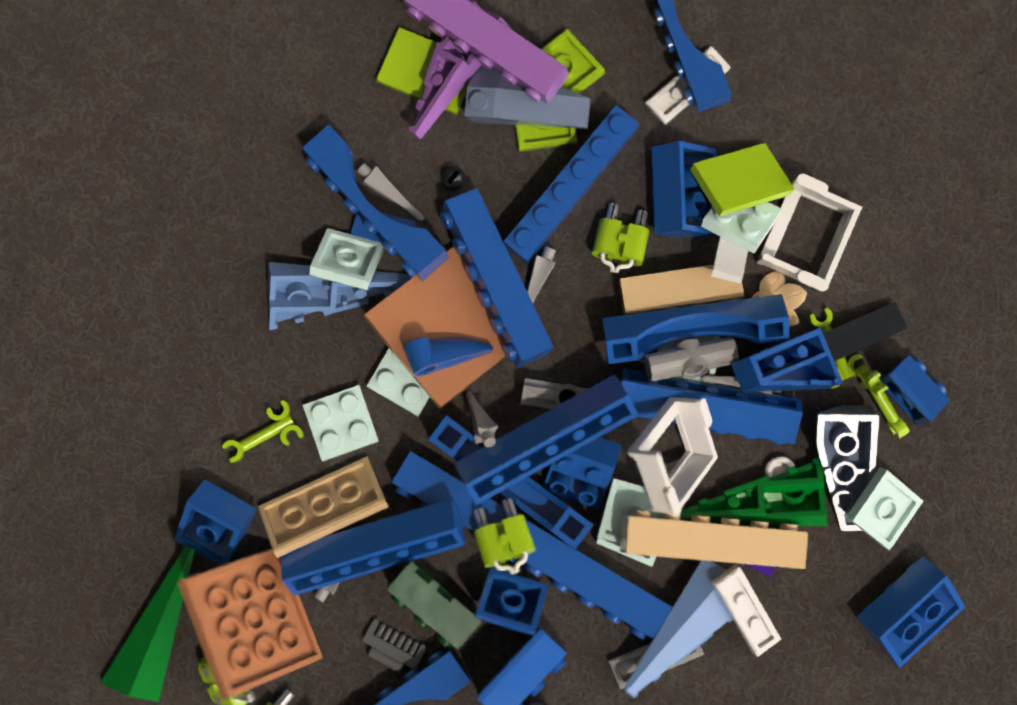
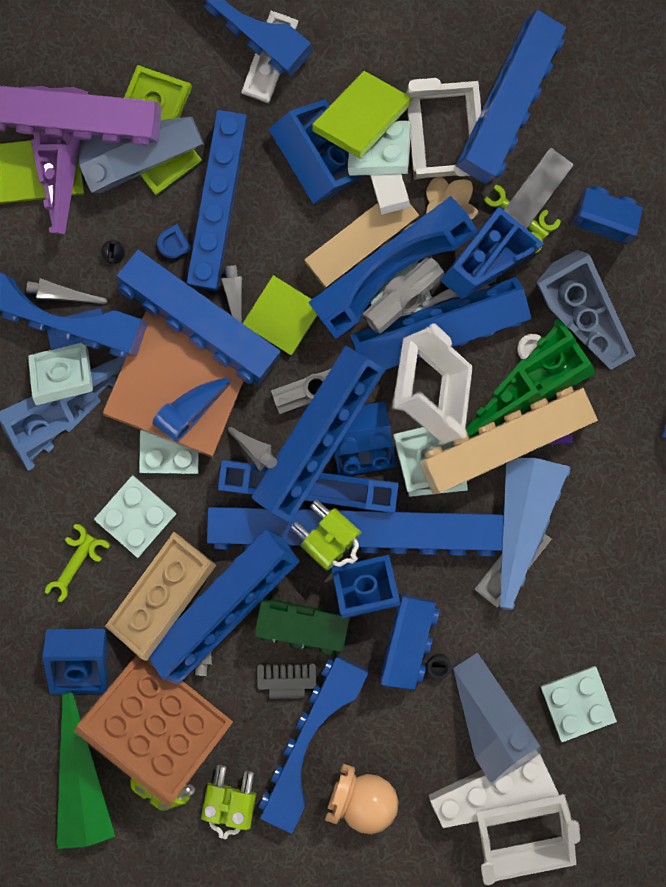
camera: 25 degrees left, 5 degrees up
(510, 200) = (173, 243): none -> blue tile
(571, 317) = (281, 315): none -> lime tile
(620, 240) = (287, 226): lime piece -> none
(746, 610) = (567, 482): white tile -> none
(871, 380) = (568, 228): lime bar -> none
(884, 237) = (511, 97): none -> blue brick
(884, 508) = (637, 331): light aqua plate -> none

